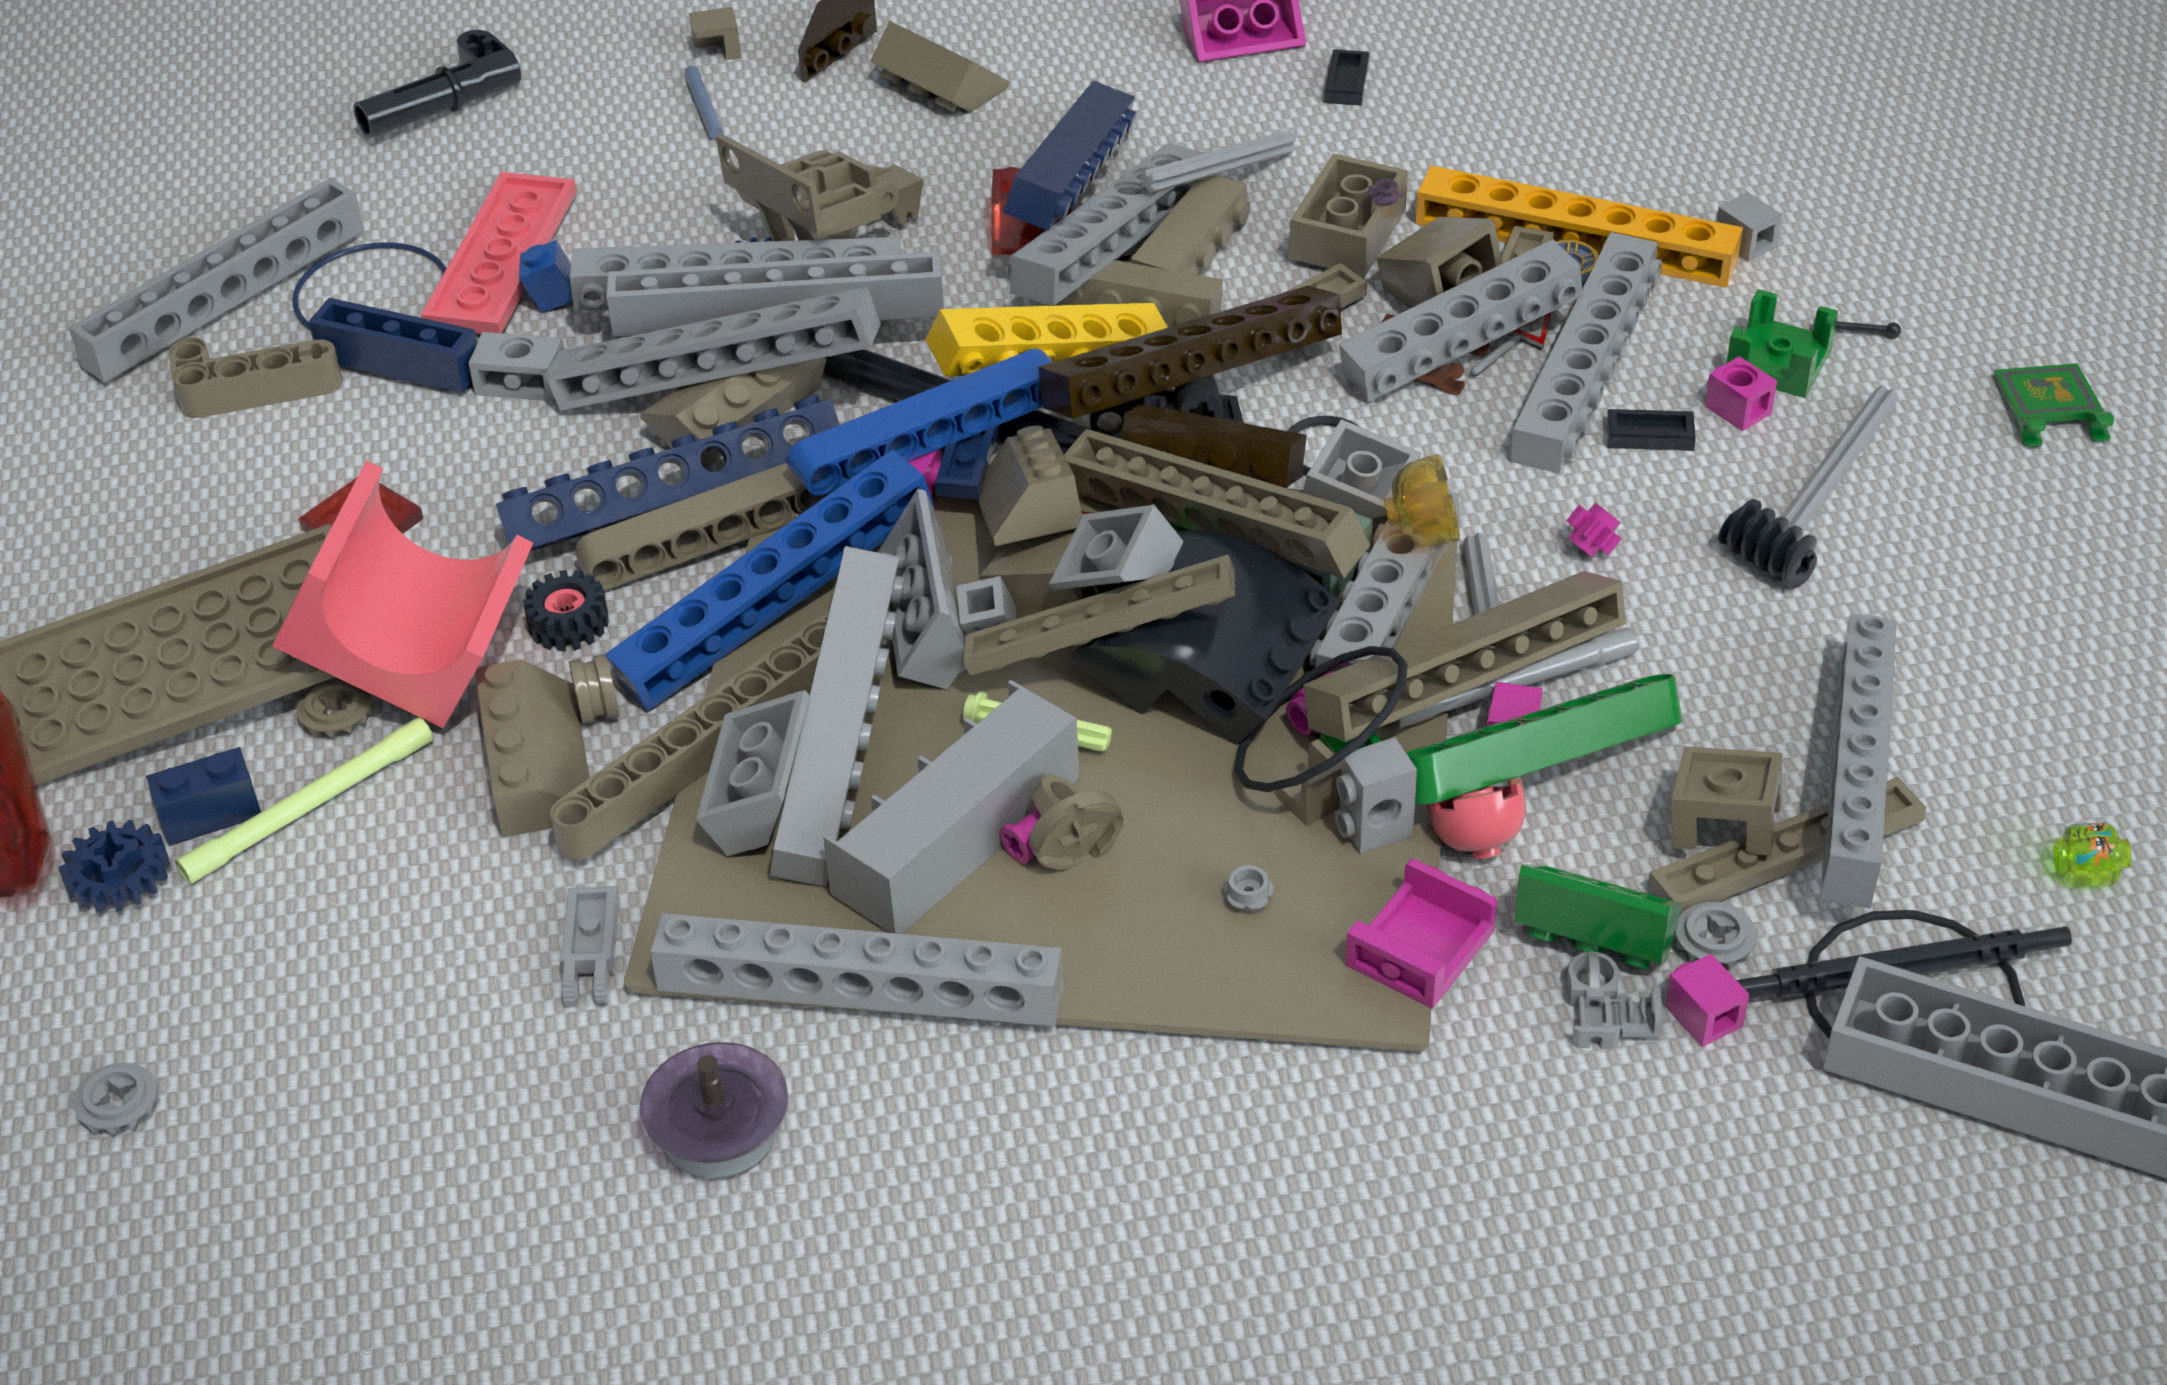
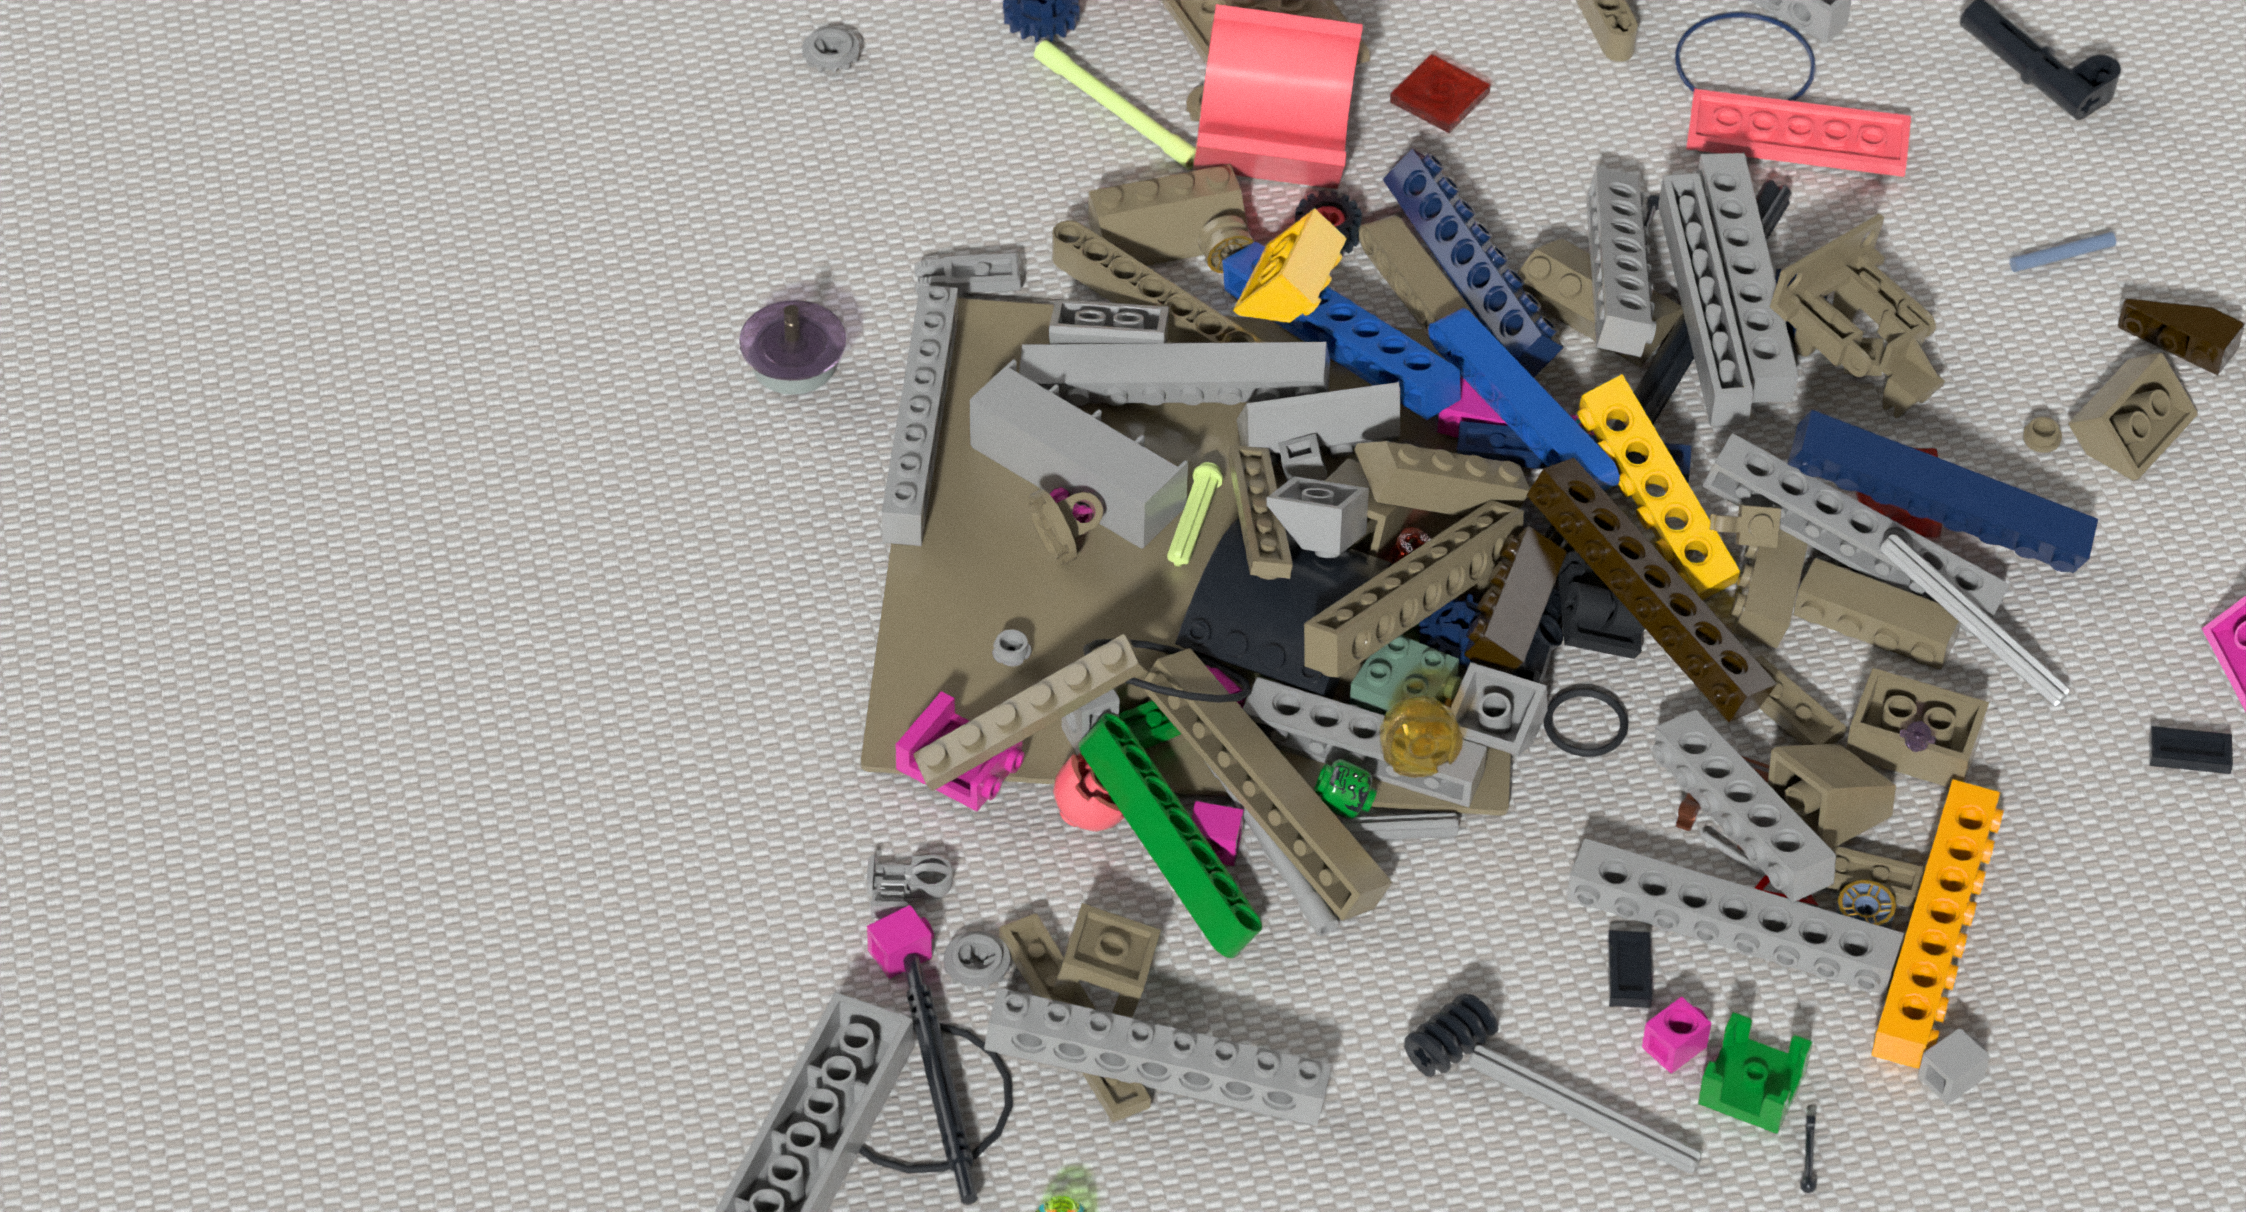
camera: 85 degrees right, 5 degrees up
(203, 796) = (1119, 43): dark blue slope -> none
(396, 344) = (1642, 75): dark blue brick -> none
(513, 365) = (1636, 152): light grey brick -> none
(546, 275) = (1759, 155): blue brick -> none
(695, 598) = (1293, 271): none -> yellow slope
(716, 28) = (2169, 243): dark tan panel -> none
(953, 127) = (2042, 435): none -> dark tan plate
(1116, 272) = (1752, 526): none -> dark tan plate
(1412, 825) = (1028, 712): none -> plate
(1456, 597) = (1345, 788): none -> green head
(1594, 529) = (1462, 902): dark pink gear -> none
(1595, 914) = (978, 860): green slope -> none

